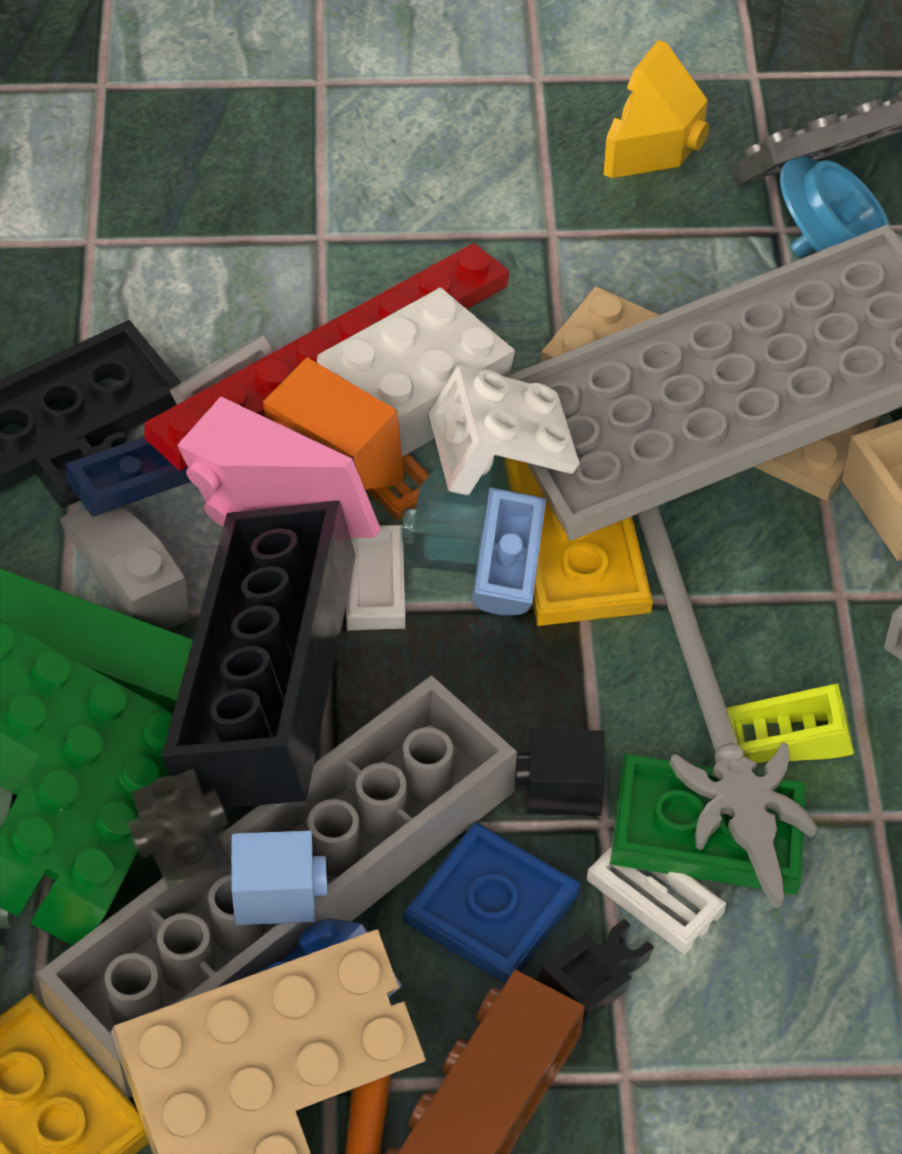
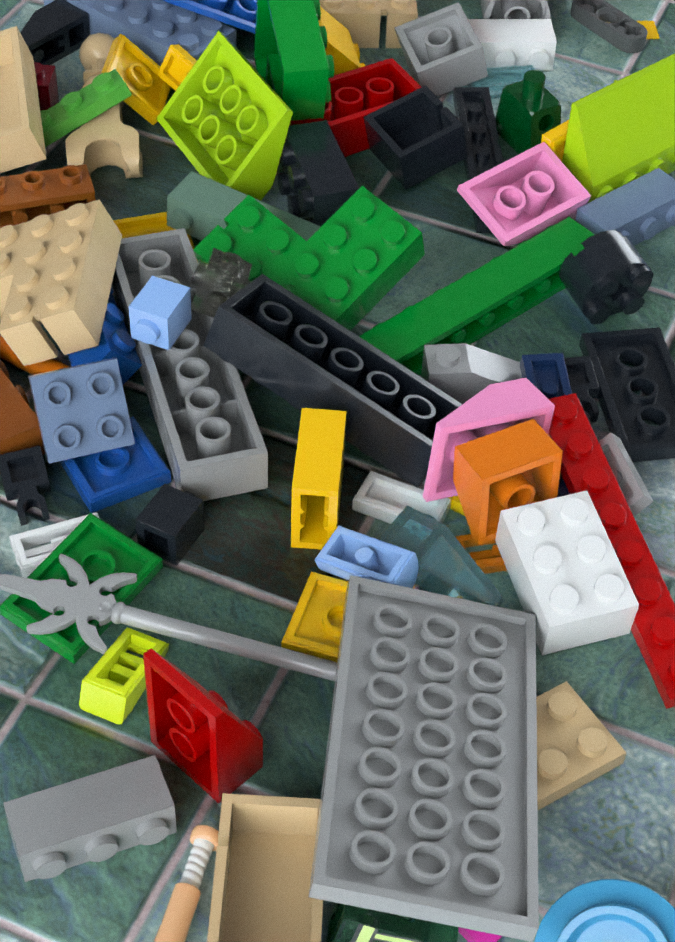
camera: 115 degrees right, 5 degrees down
(421, 625) = (317, 477): none -> yellow brick
(461, 941) = (81, 410): none -> sand blue plate
(499, 416) = (457, 573): white bracket -> none
(831, 583) = (199, 729): none -> red slope

